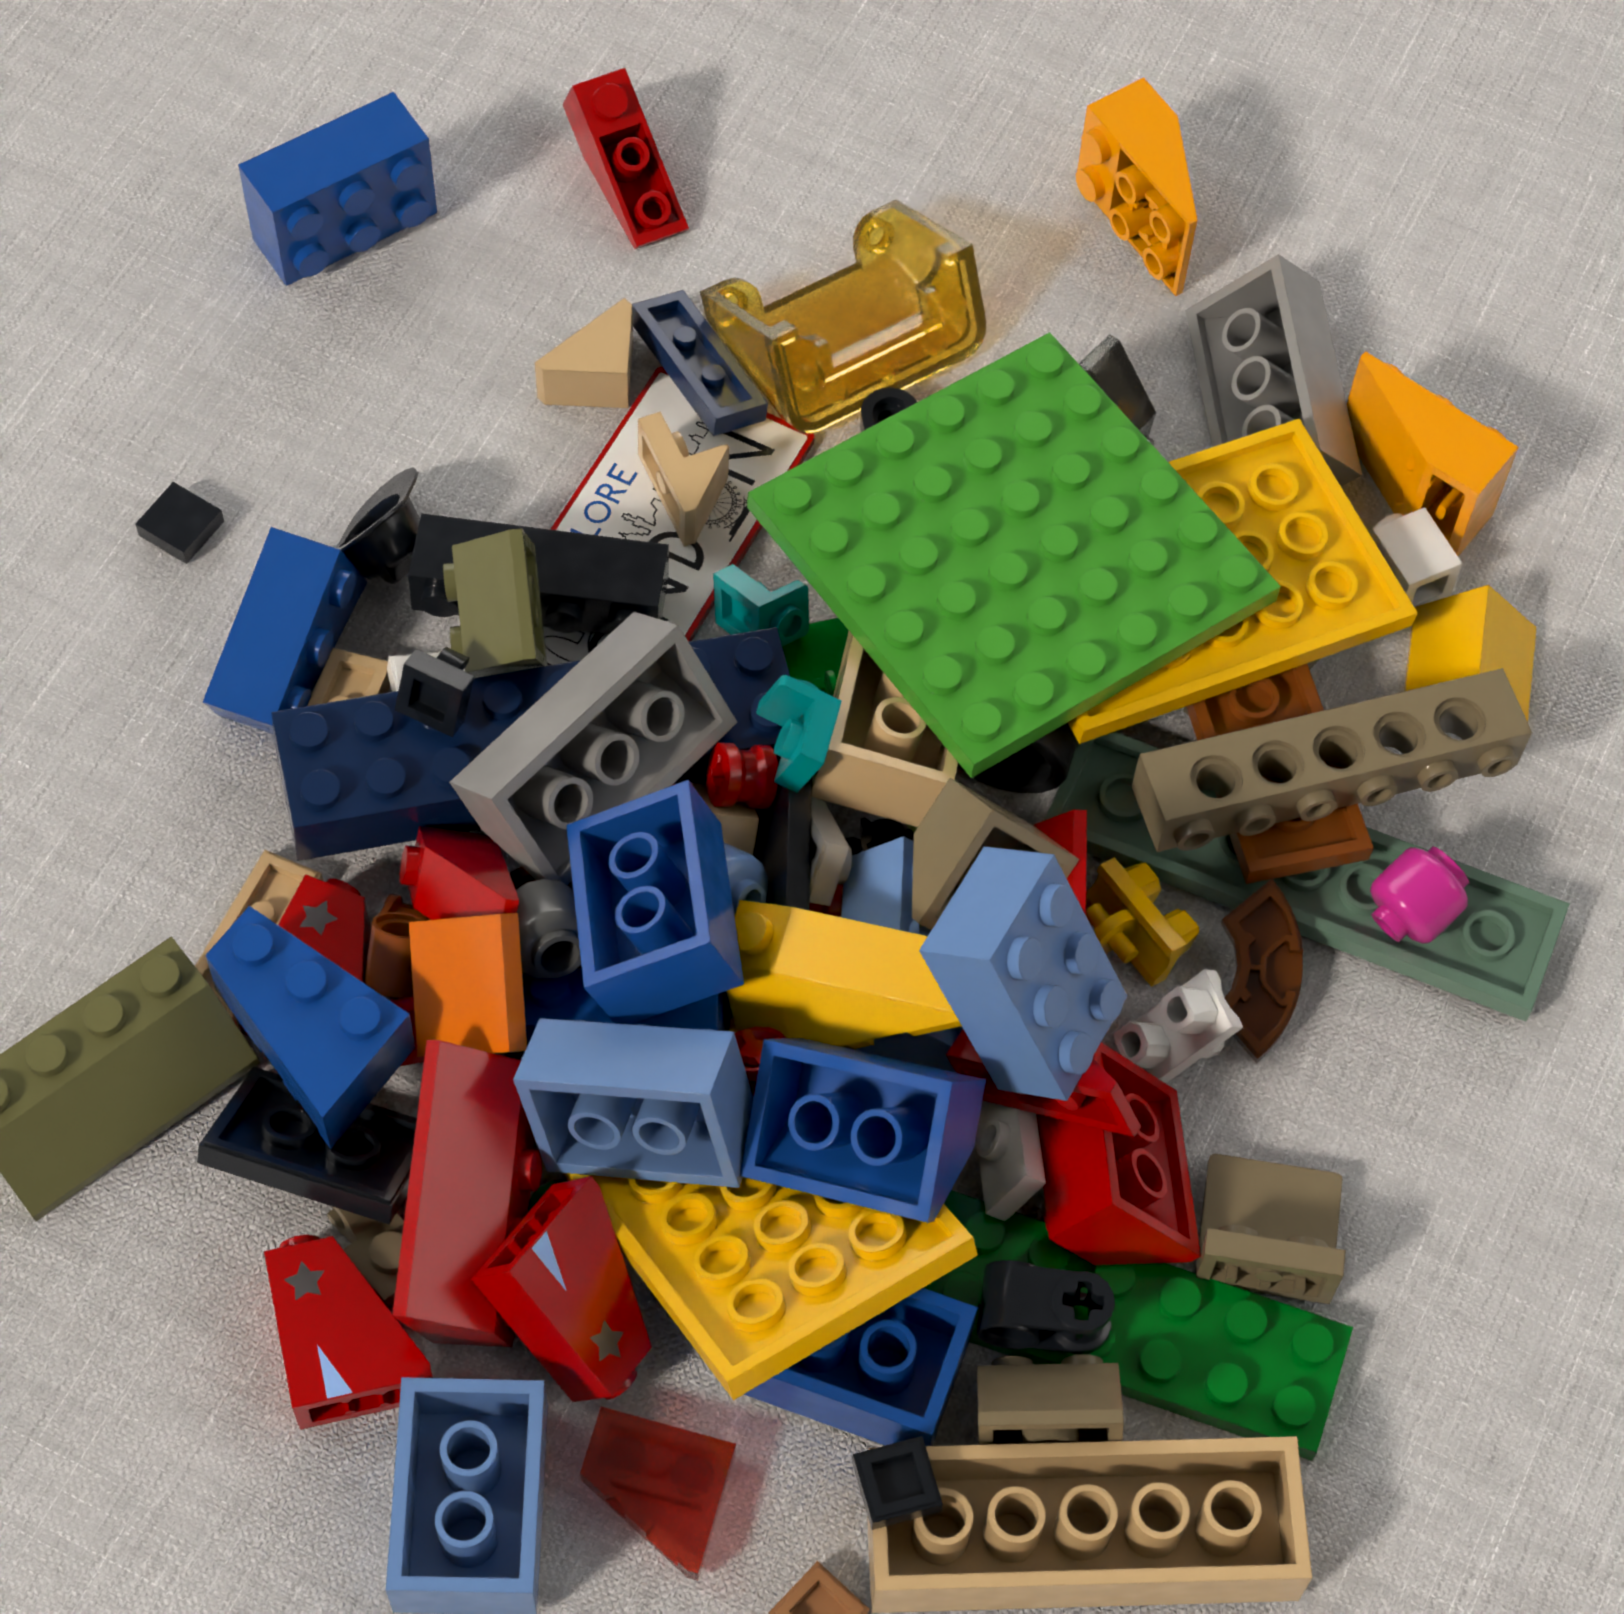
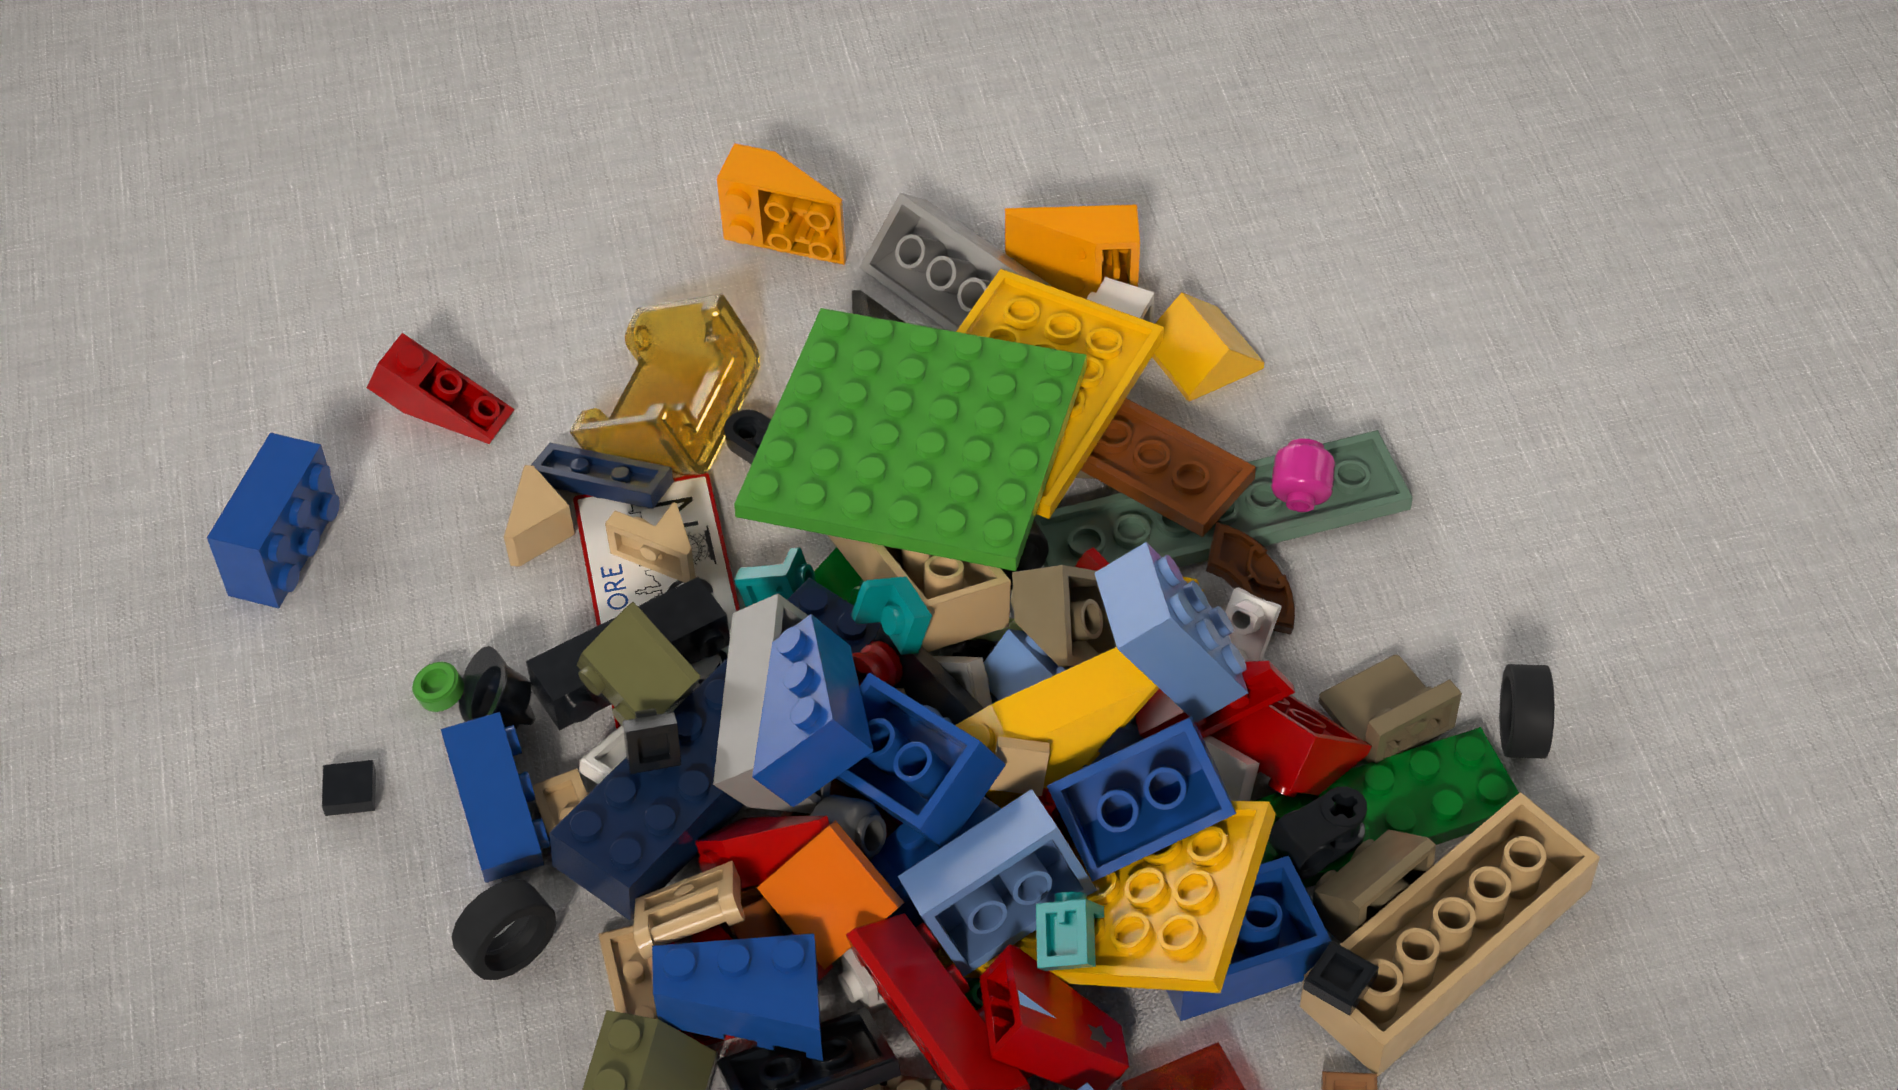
camera: 35 degrees left, 10 degrees down
(169, 778) = (489, 914): none -> black tyre
(329, 891) = (688, 908): none -> tan plate
(350, 477) = (438, 686): none -> bright green tile
(592, 777) = (810, 713): none -> blue wedge
(655, 1208) = (1066, 932): none -> teal bracket
(769, 995) = (1025, 765): none -> tan tile
(1409, 1350) = (1526, 711): none -> black tyre
(1414, 721) = (1193, 435): dark tan brick -> none

